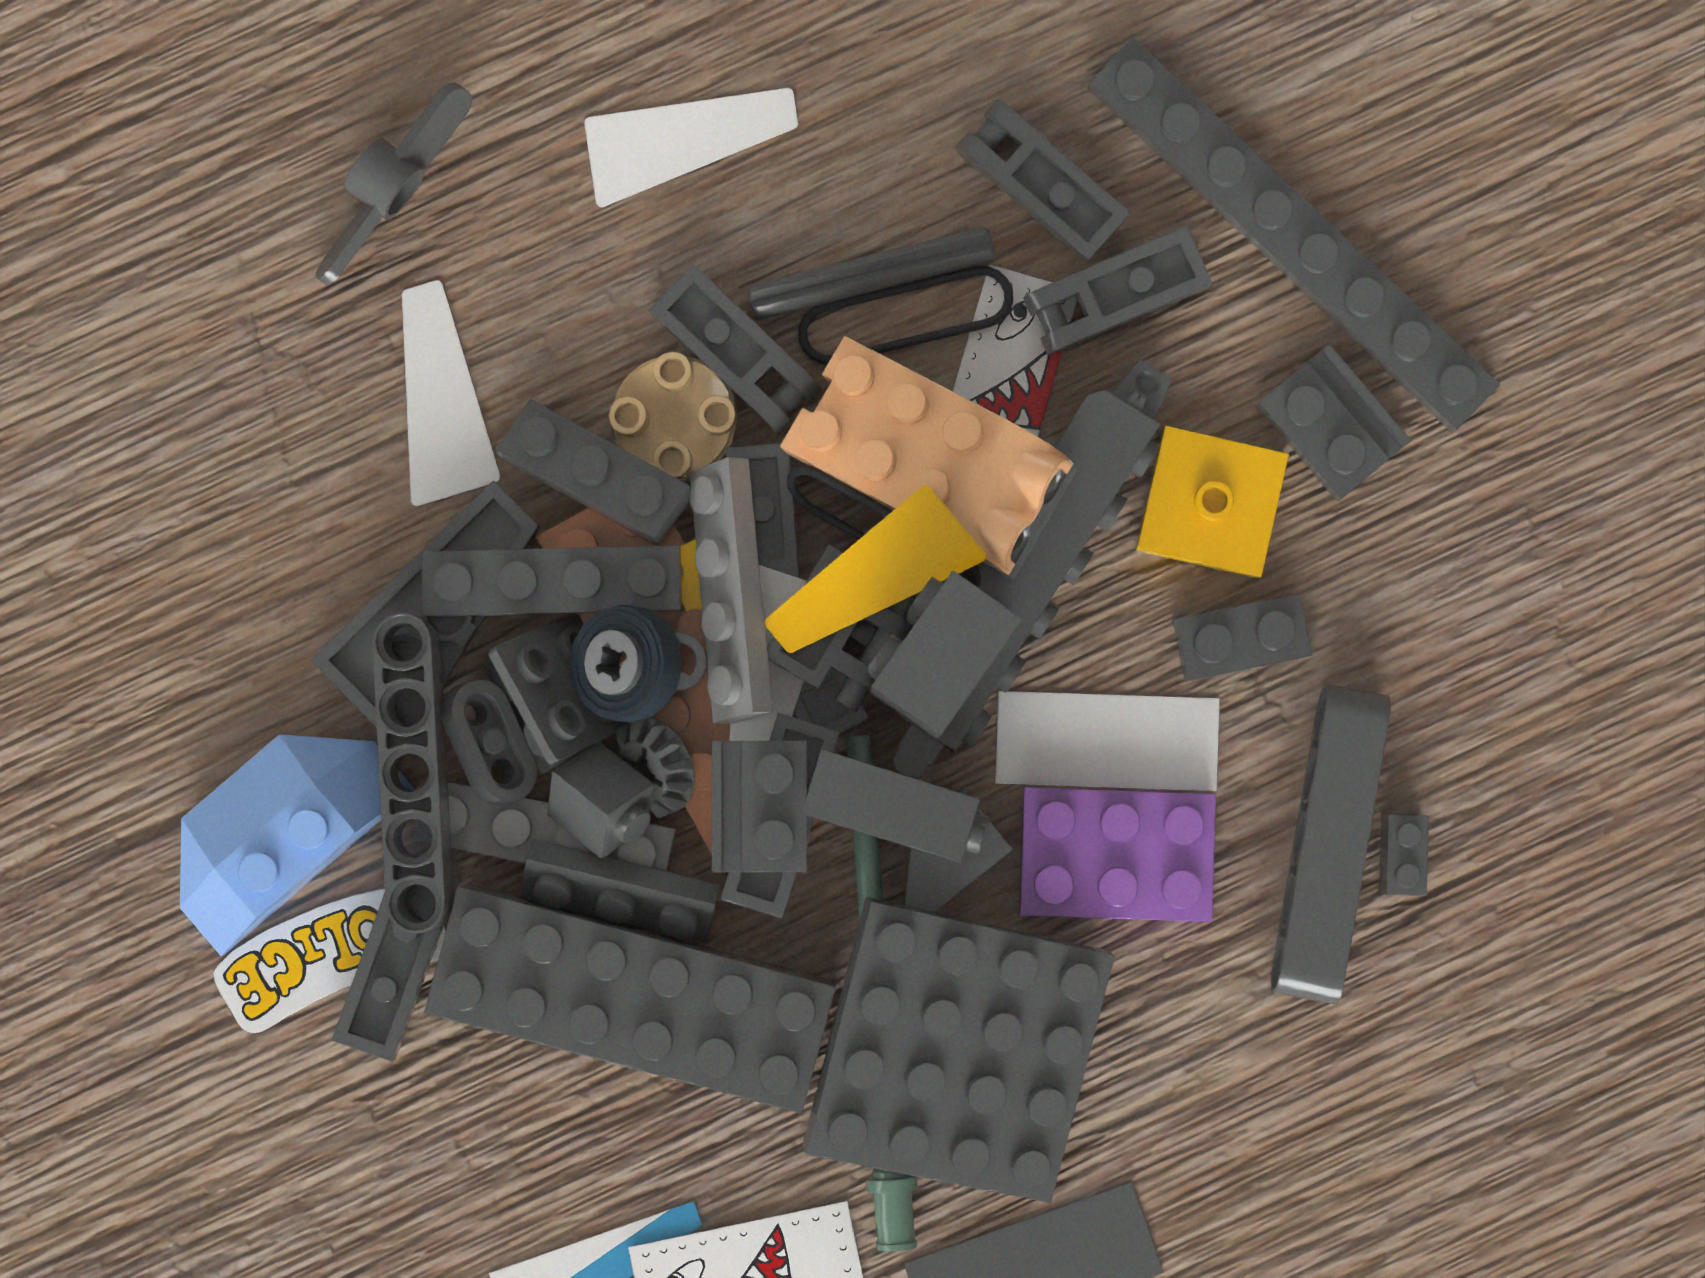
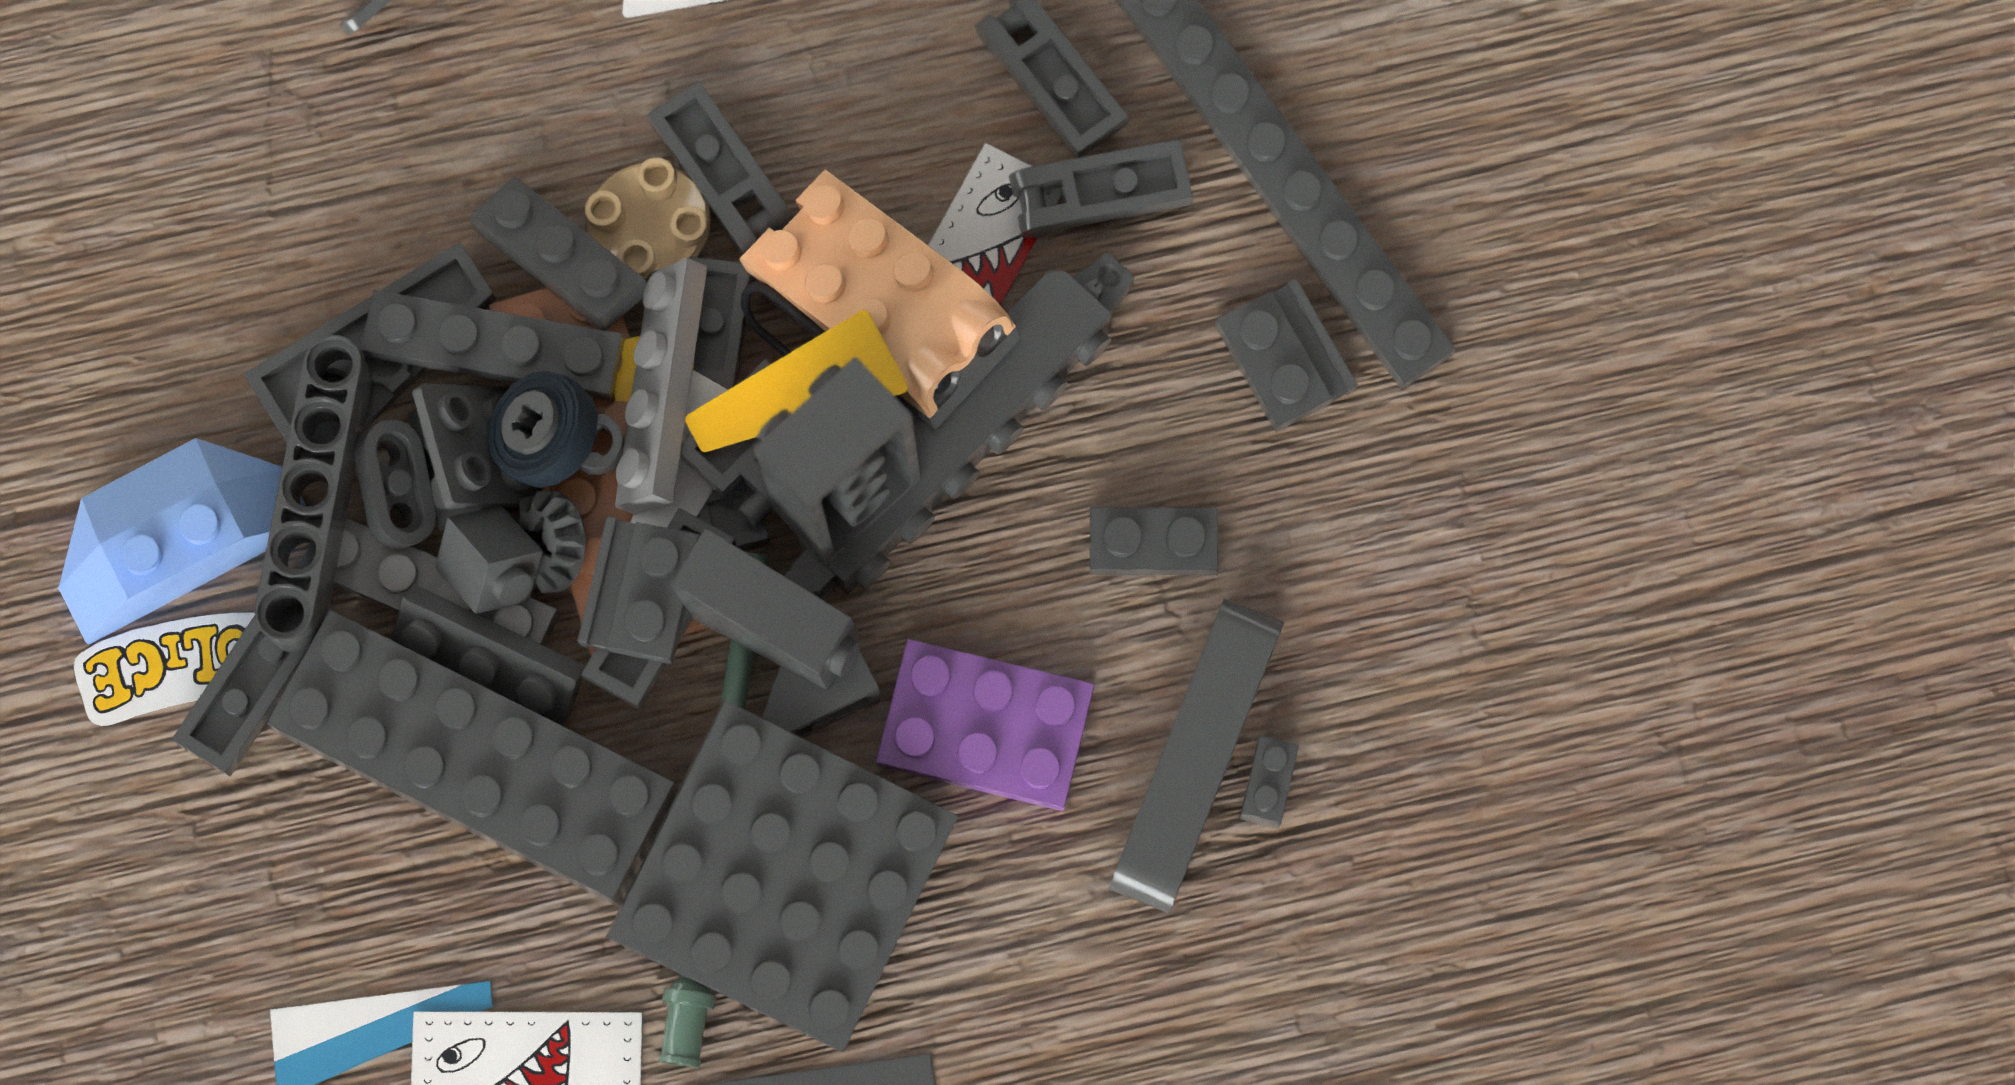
camera: 15 degrees right, 10 degrees down
(444, 420) = (429, 181): white sticker -> none
(871, 273) = (868, 126): dark grey axle -> none
(904, 288) = (901, 148): black piece -> none
(1107, 741) = (1001, 615): white sticker -> none
(1212, 502) = (1151, 406): yellow plate -> none

